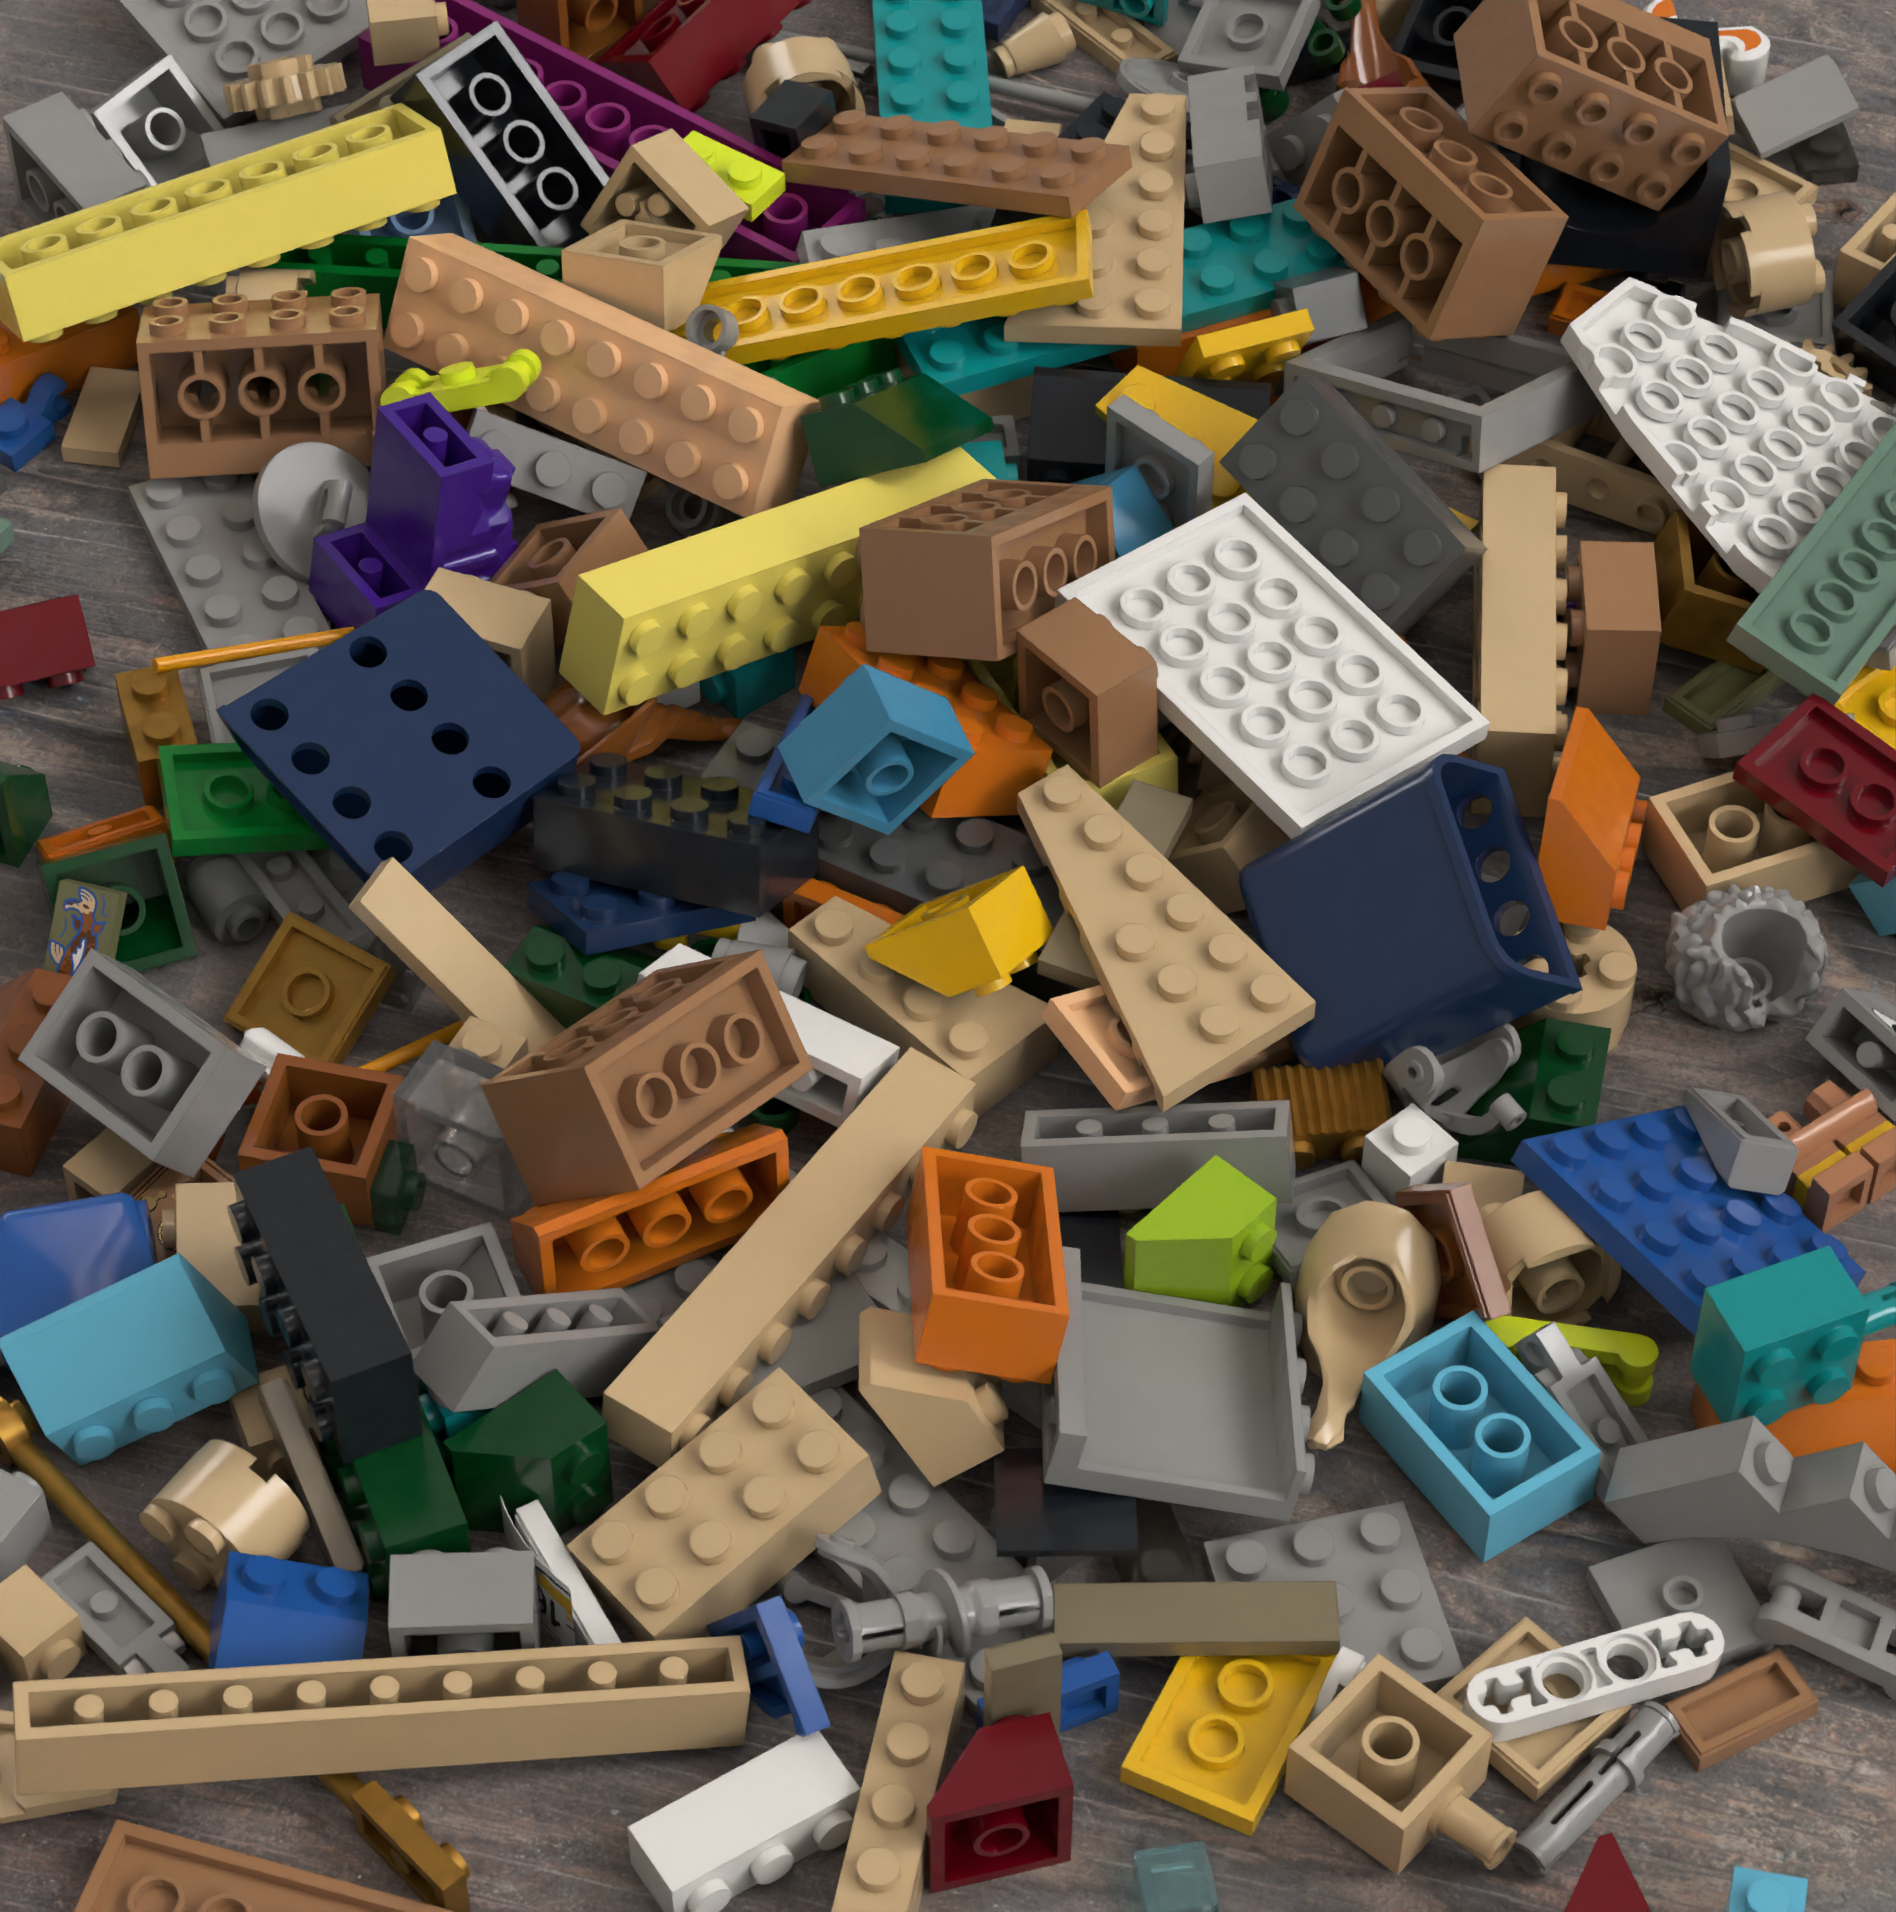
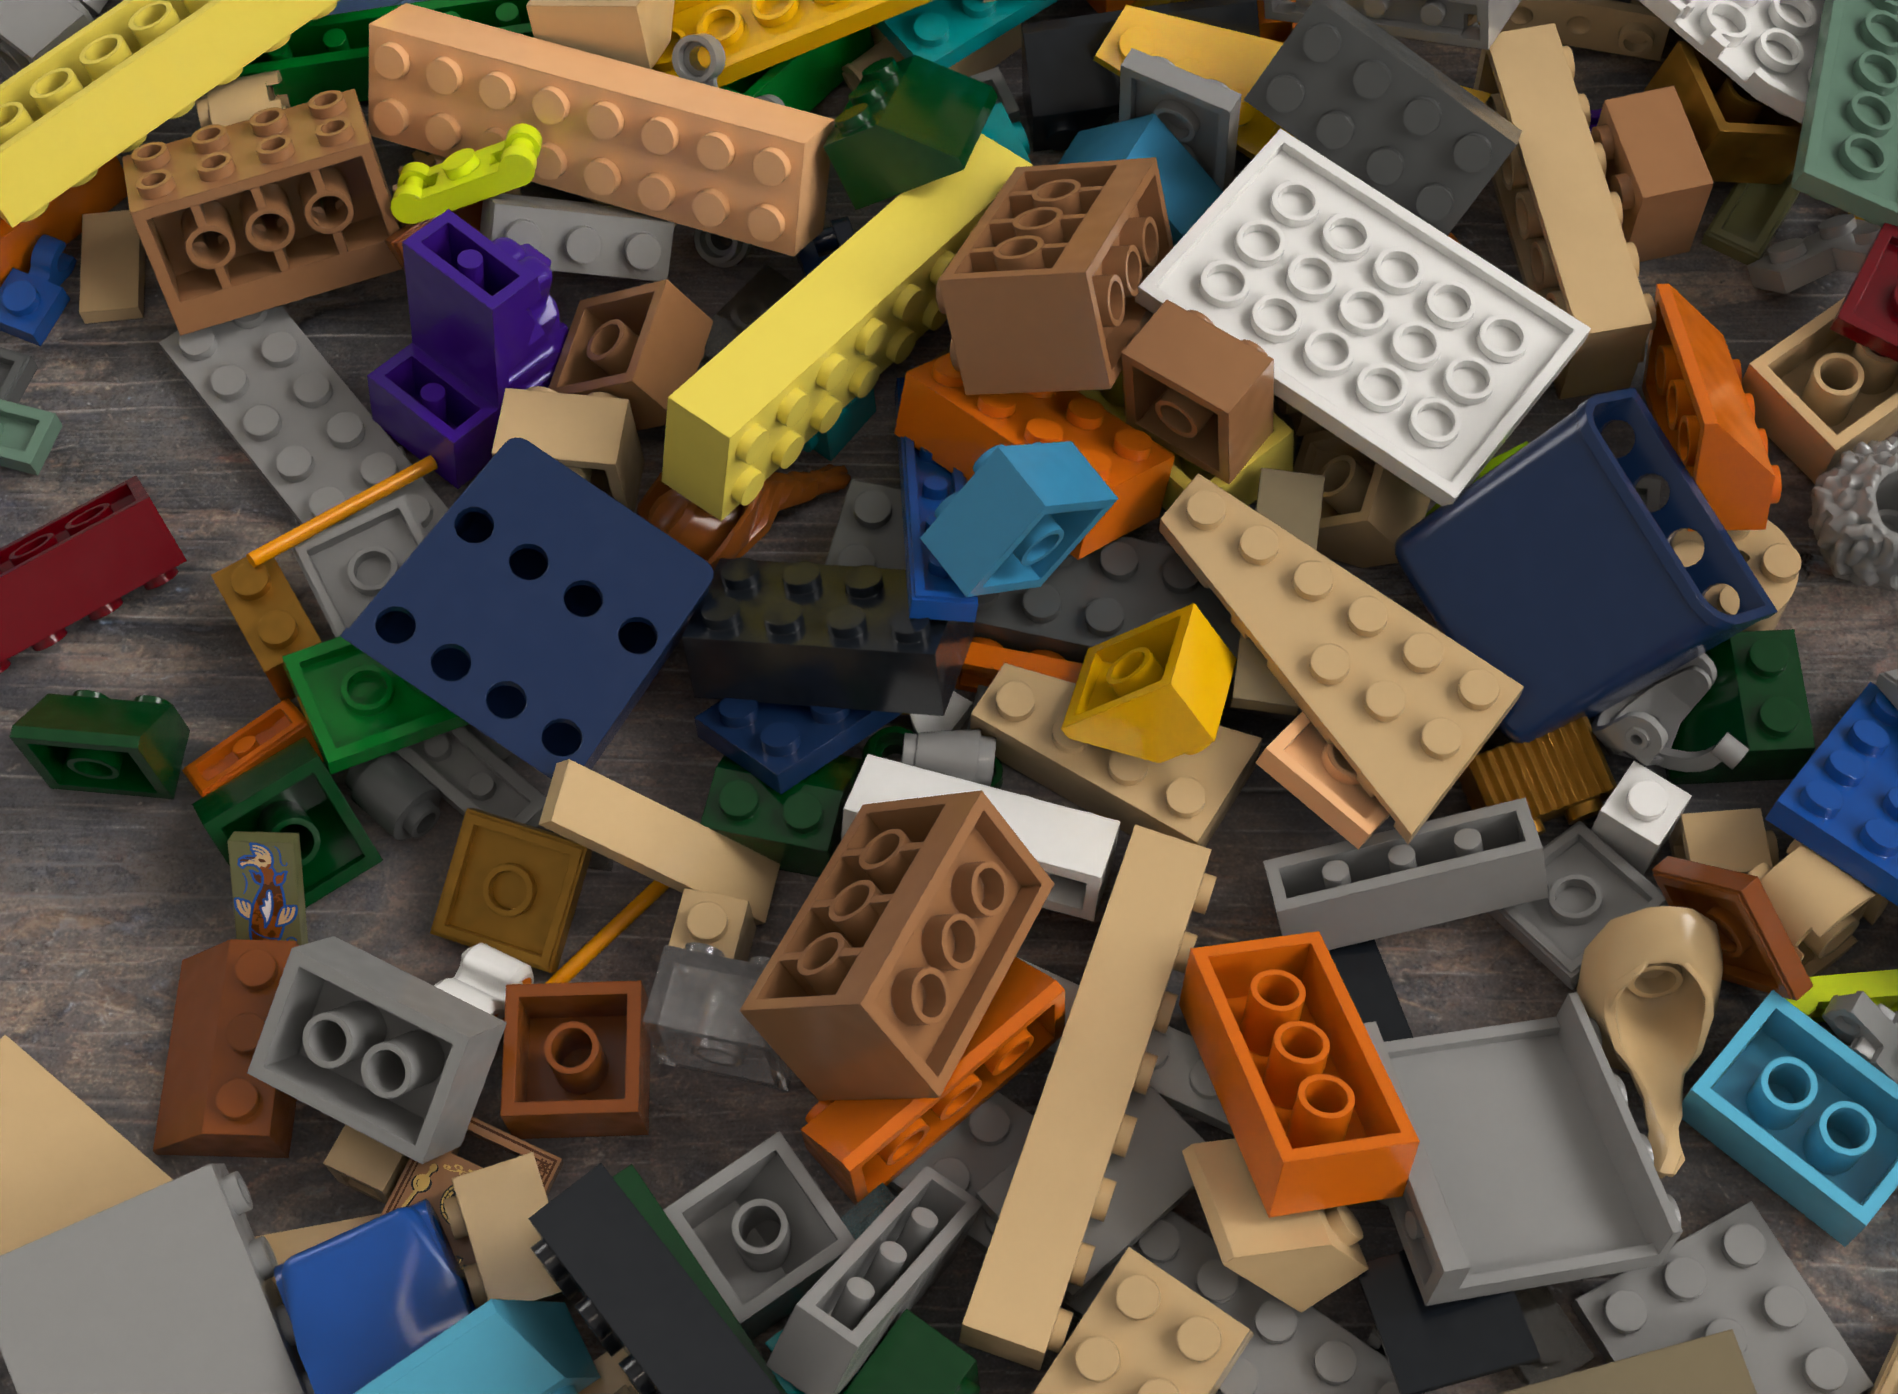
camera: 10 degrees left, 15 degrees up
(305, 495) = (347, 327): light grey shield -> none
(396, 1187) = (664, 1091): clear green plate -> none
(1206, 1240) = (1489, 968): lime slope -> none

